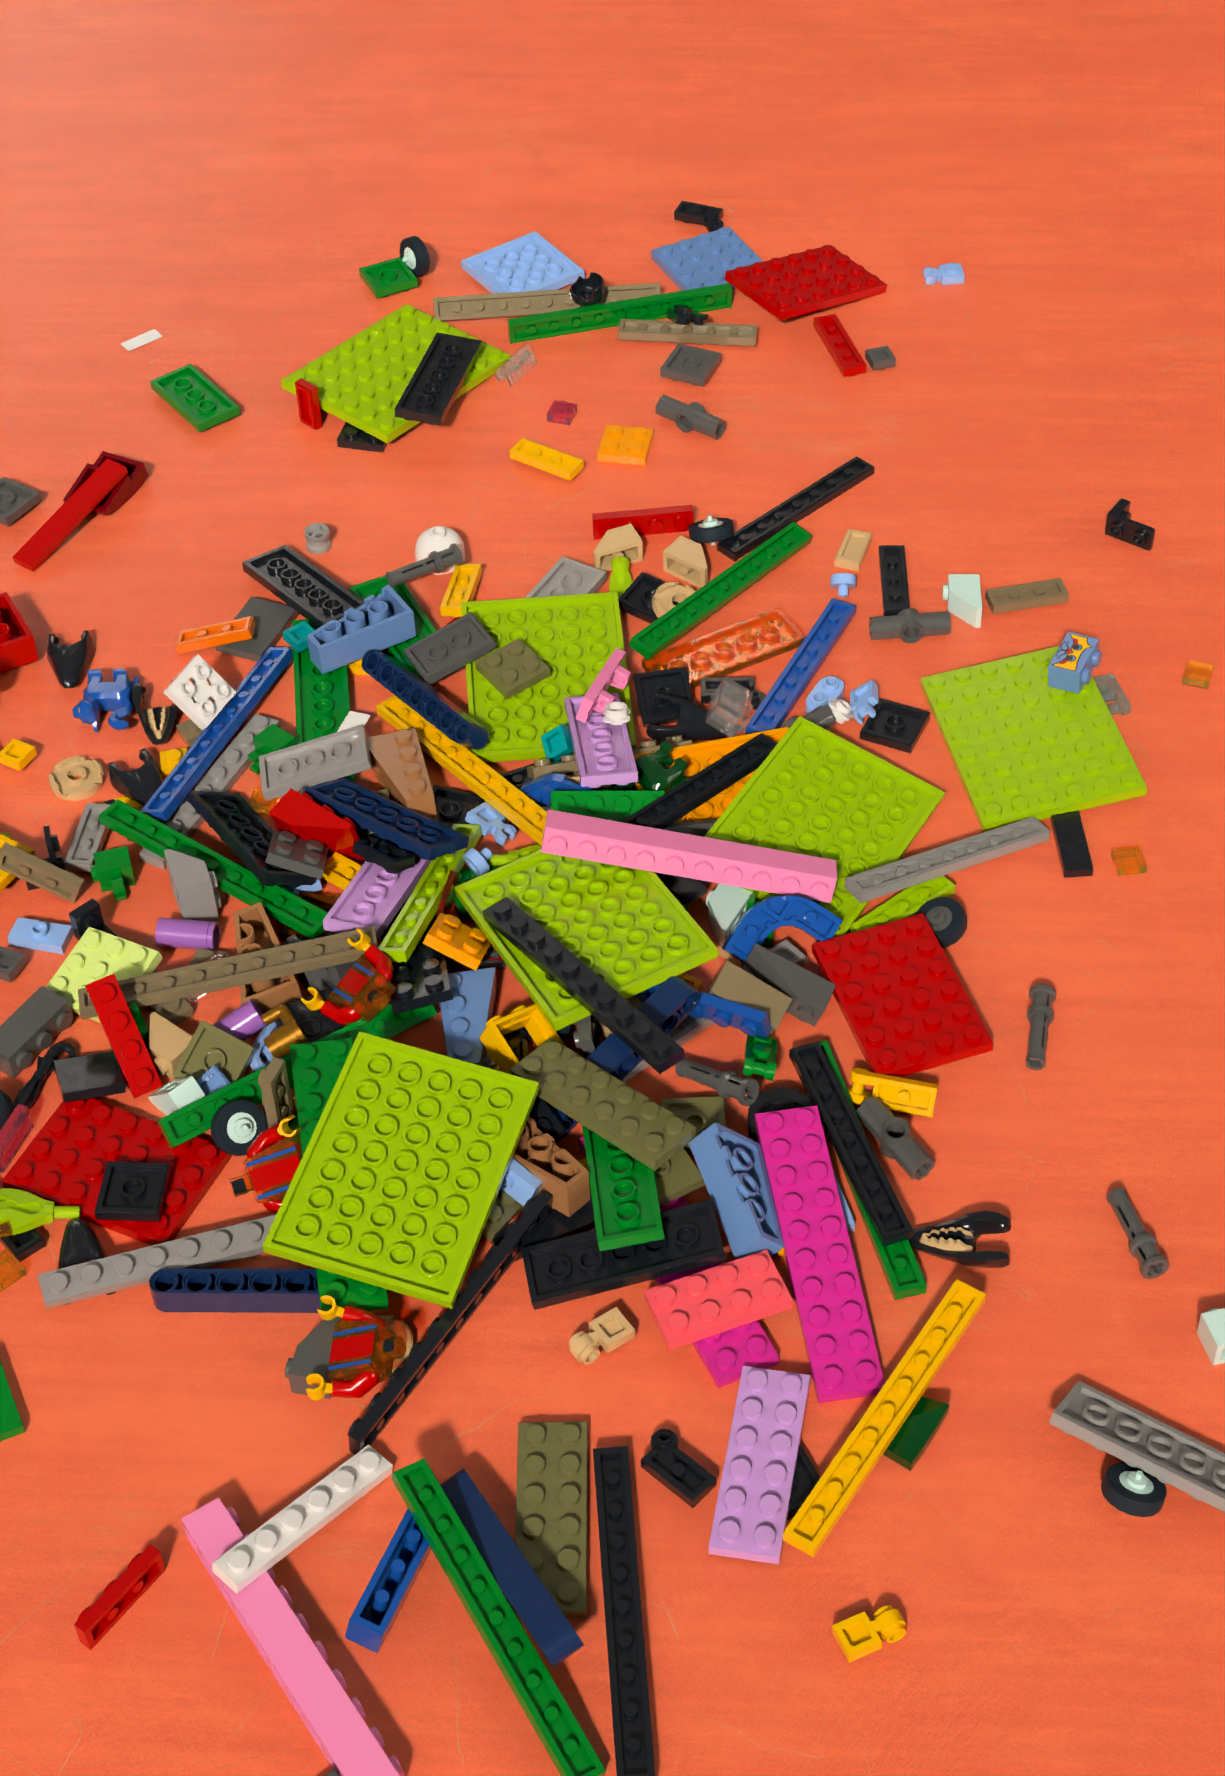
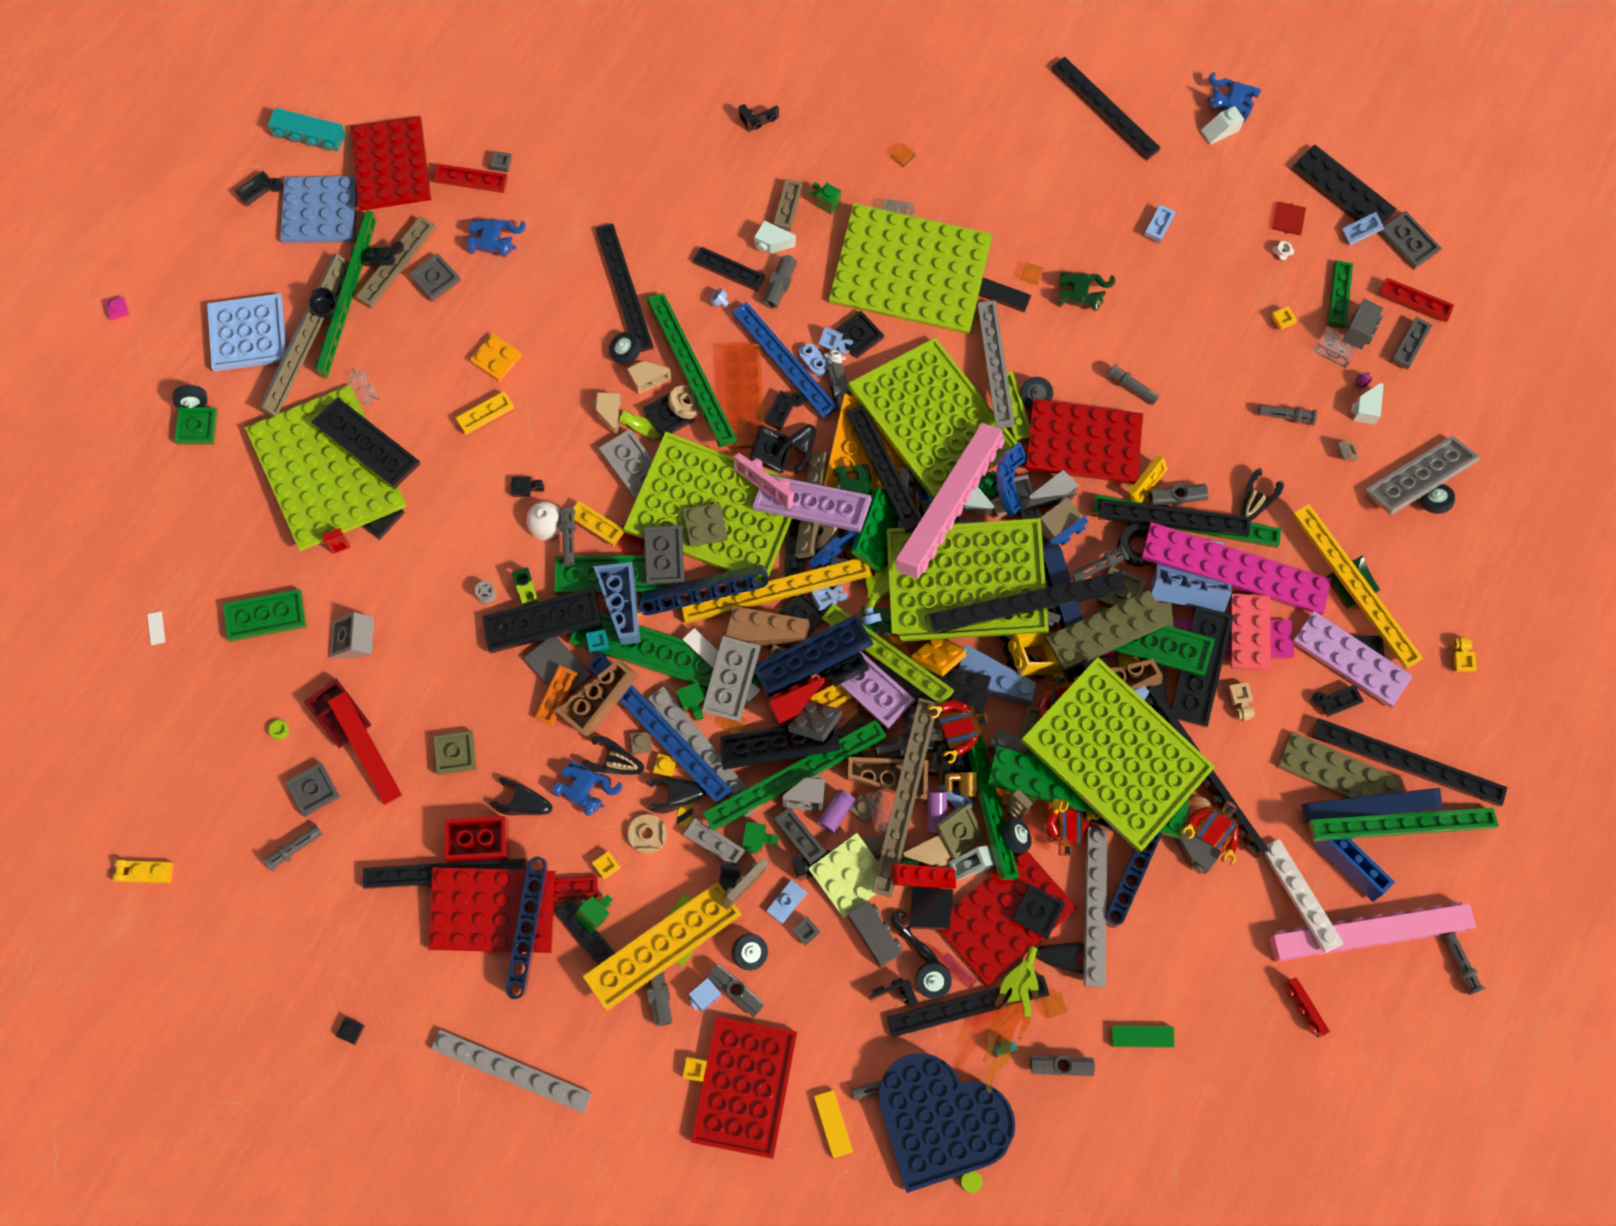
camera: 70 degrees left, 25 degrees up
(66, 457) = (278, 729): none -> lime tile
(102, 586) = (454, 752): none -> olive plate
(134, 908) = (799, 836): none -> dark grey plate
(196, 697) = (628, 726): white plate -> none
(203, 462) = (352, 636): none -> slope
(213, 1080) = (976, 838): medium blue tile -> none
(233, 659) = (598, 698): none -> medium nougat wedge
(344, 561) = (525, 586): none -> leg
(475, 522) = (524, 486): none -> black plate
(489, 186) = (117, 308): none -> dark pink plate
(557, 742) = (789, 528): teal plate -> none
(562, 412) = (434, 380): clear pink plate -> none
(616, 713) = (796, 480): white plate -> none
(645, 520) = (589, 389): red plate -> none
(690, 417) = (494, 304): dark grey piece -> none
(729, 708) = (807, 417): clear brick -> none
(760, 1056) = (1100, 535): green plate -> none
(777, 381) = (490, 236): none -> blue animal
(797, 218) = (306, 129): none -> teal brick
(853, 550) = (685, 276): tan tile -> none
(946, 274) = (429, 73): light blue plate -> none
(1065, 619) = (827, 197): none -> green brick
(1074, 662) = (882, 214): medium blue brick -> none
(1130, 1334) = (1348, 451): none -> dark tan plate
(1143, 915) = (1080, 289): none -> dark green animal

